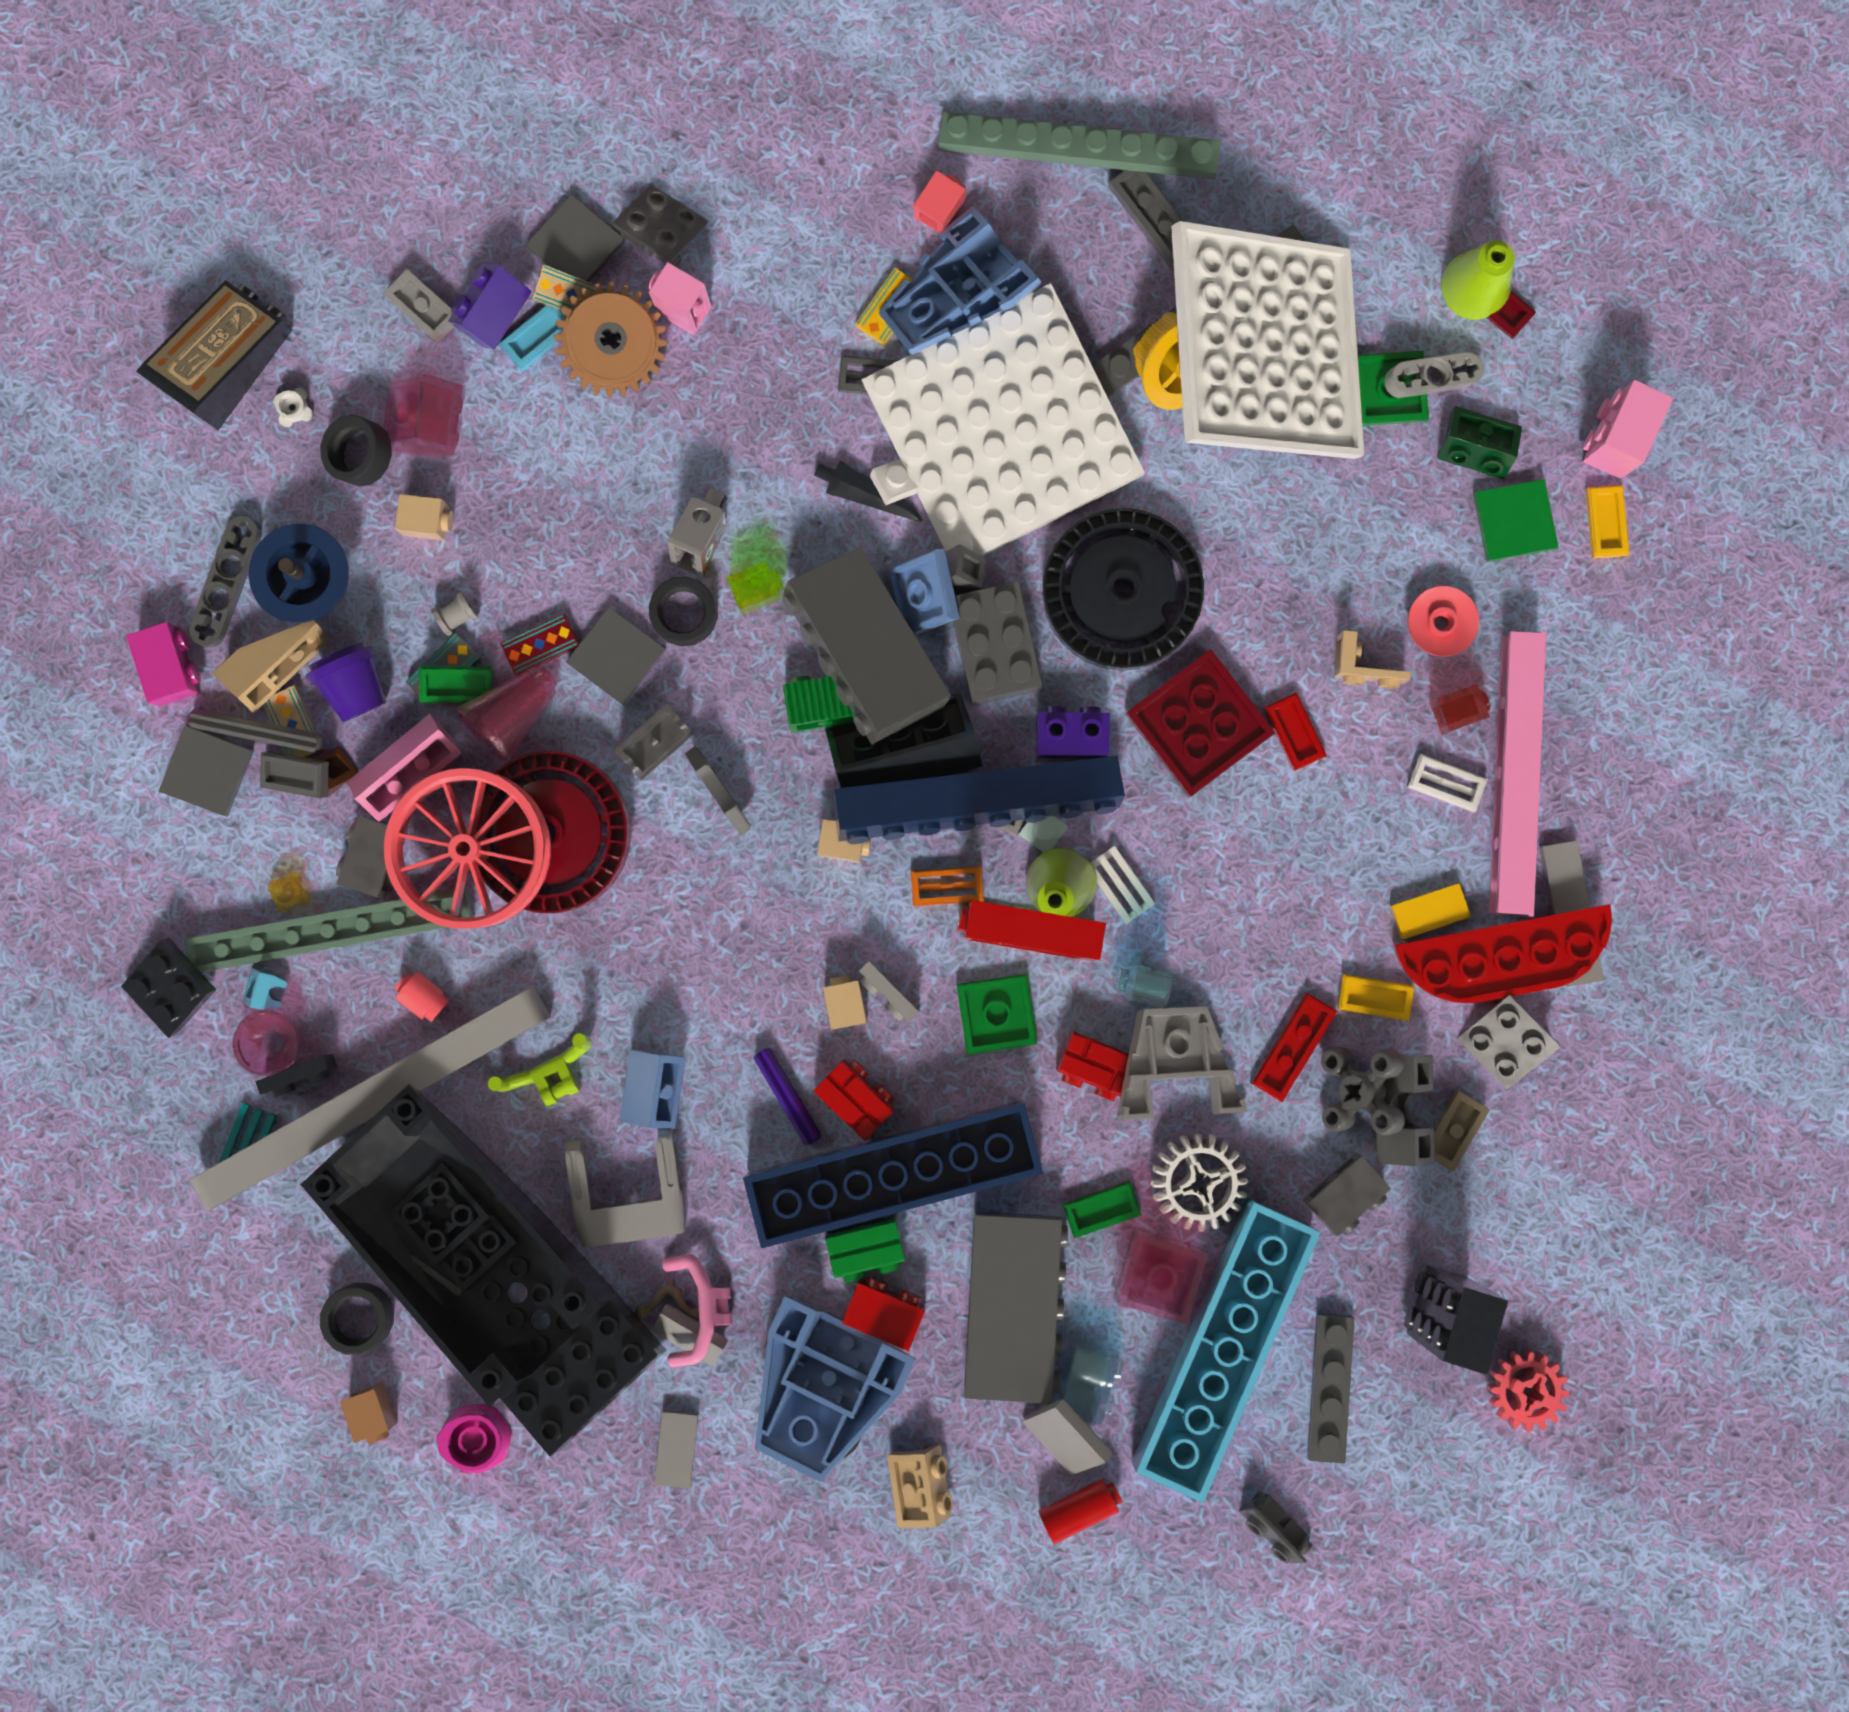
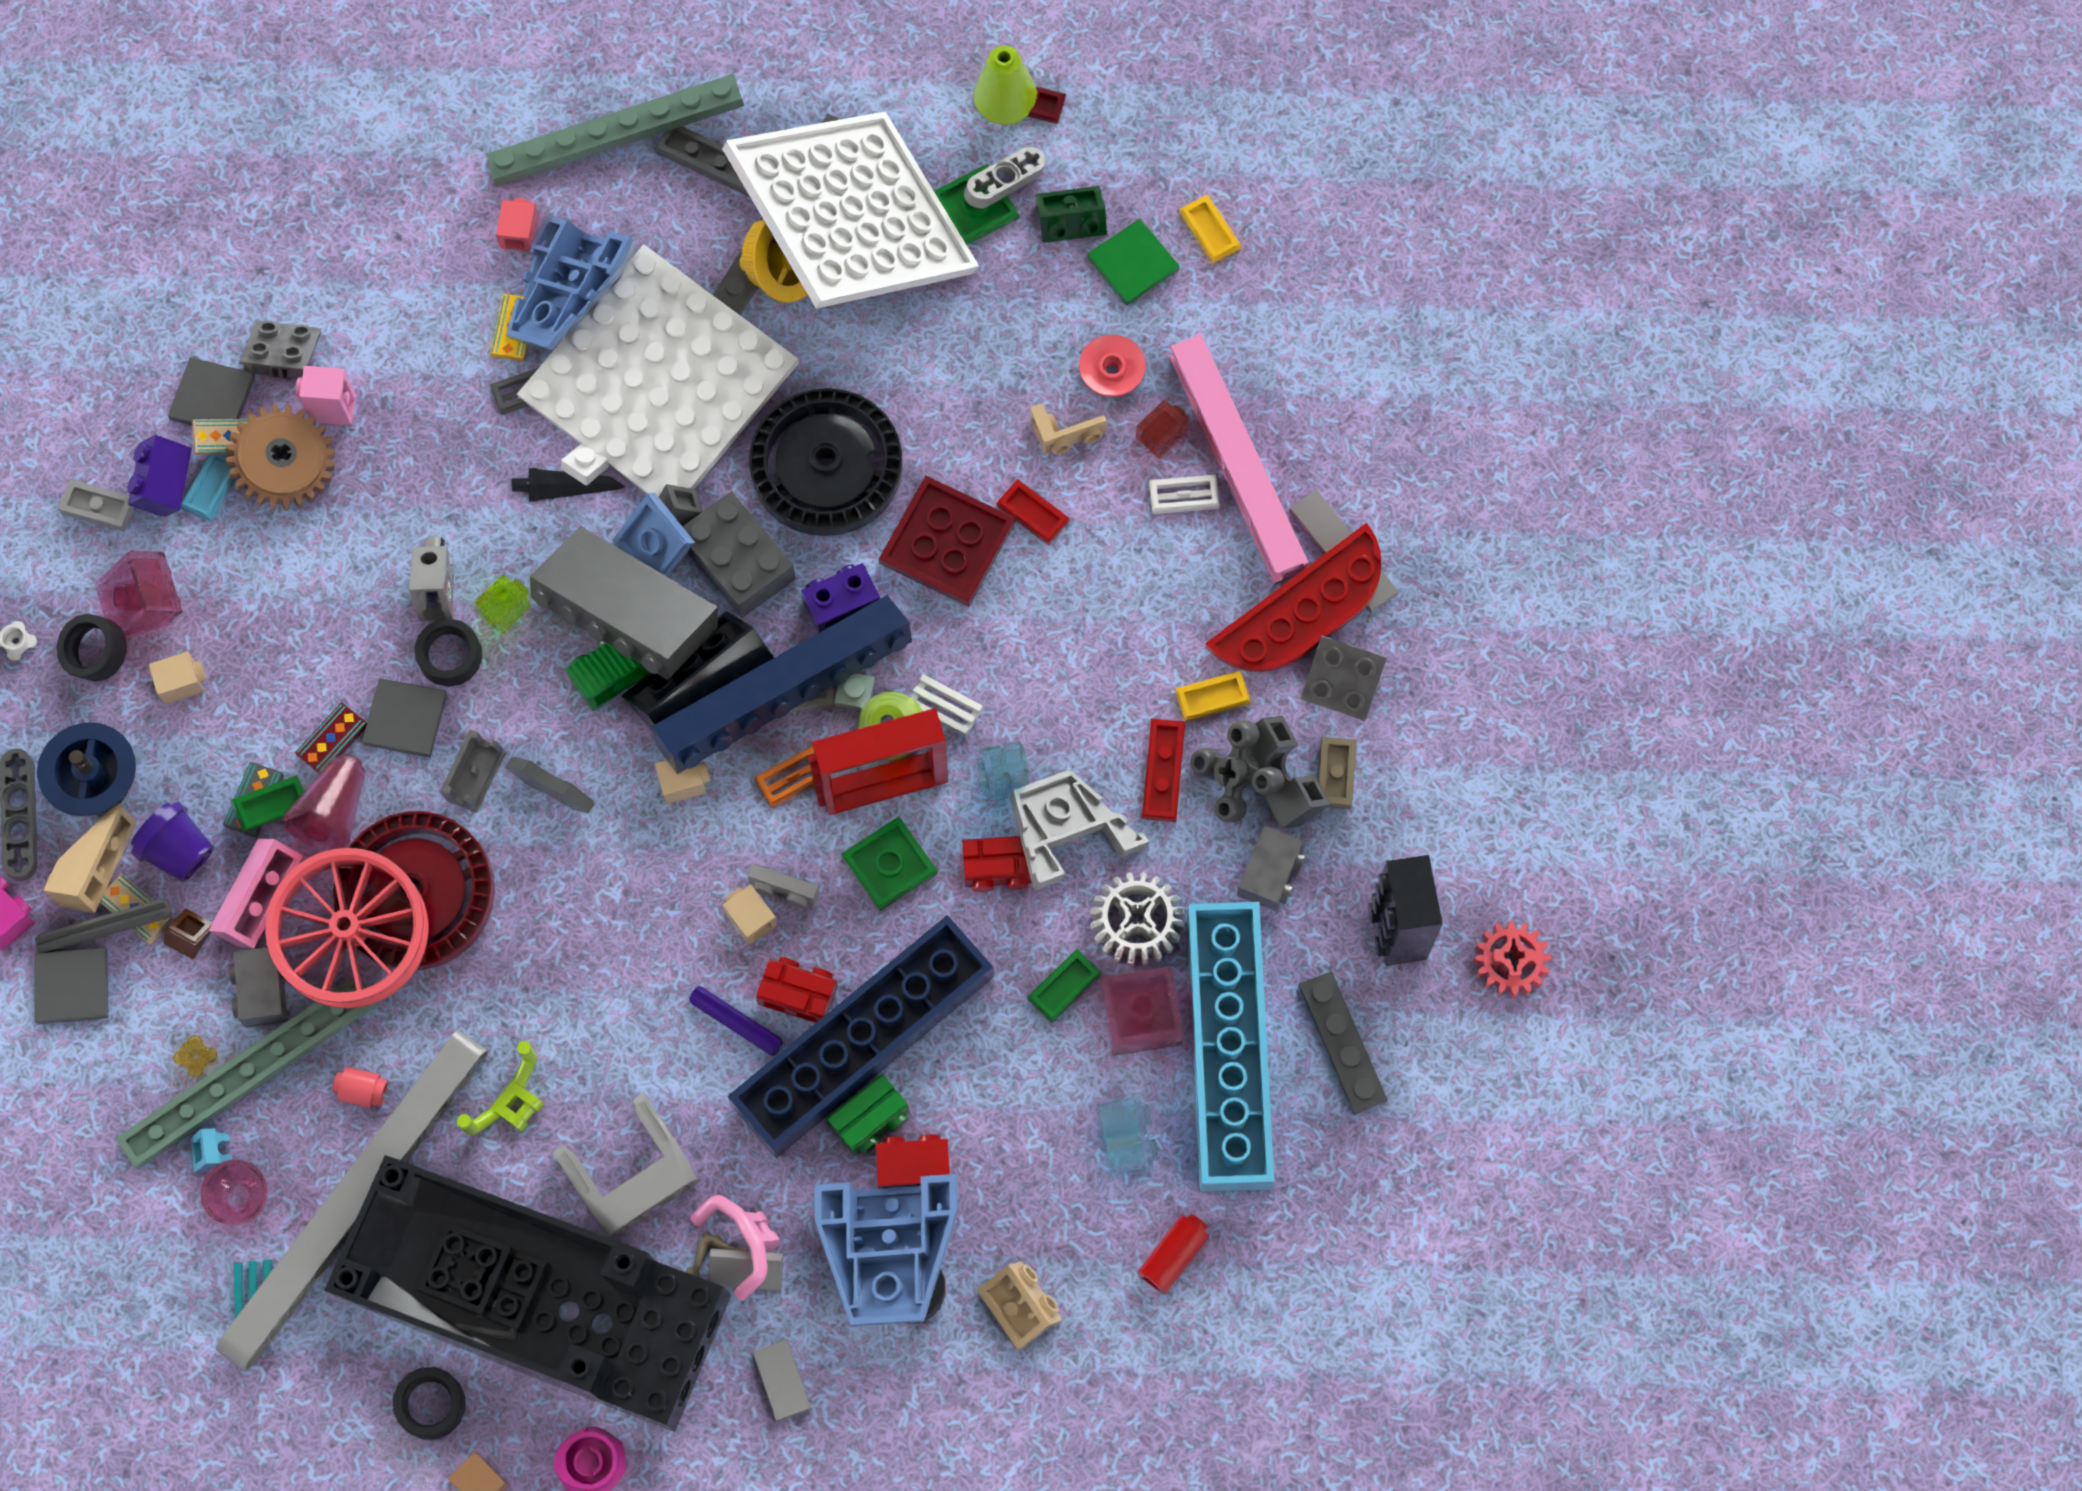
camera: 30 degrees left, 15 degrees down
(168, 987) = (119, 1188): black plate -> none
(283, 1081) = (265, 1220): black plate -> none
(294, 774) = (156, 947): dark grey tile -> none
(454, 613) = (242, 745): light grey bush -> none
(652, 1089) = (609, 1065): medium blue brick -> none
(1015, 1307) = (1027, 1103): dark grey brick -> none
(1067, 1437) = (1128, 1189): light grey tile -> none
(1288, 1541) = (1371, 1193): dark grey hinge -> none
(1430, 911) = (1223, 604): yellow tile -> none
(1626, 429) = (1183, 148): bright pink brick -> none

